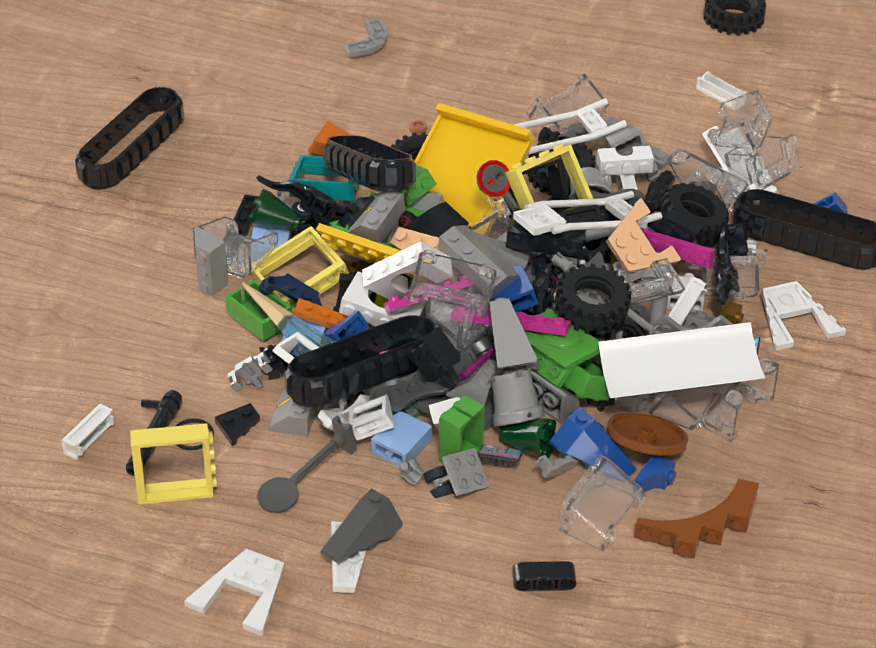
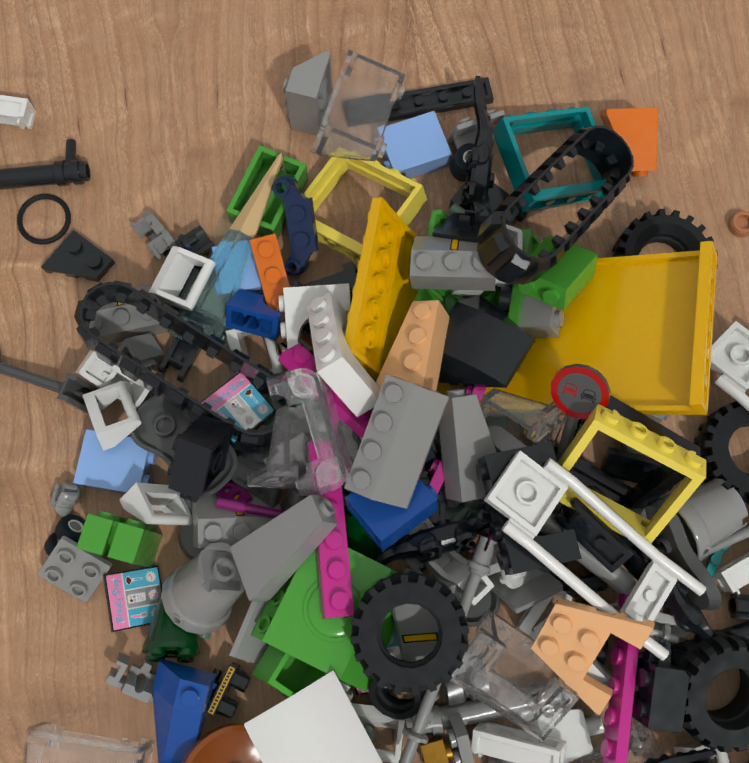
camera: 65 degrees right, 35 degrees up
(273, 213) = (434, 127): dark green cone -> none

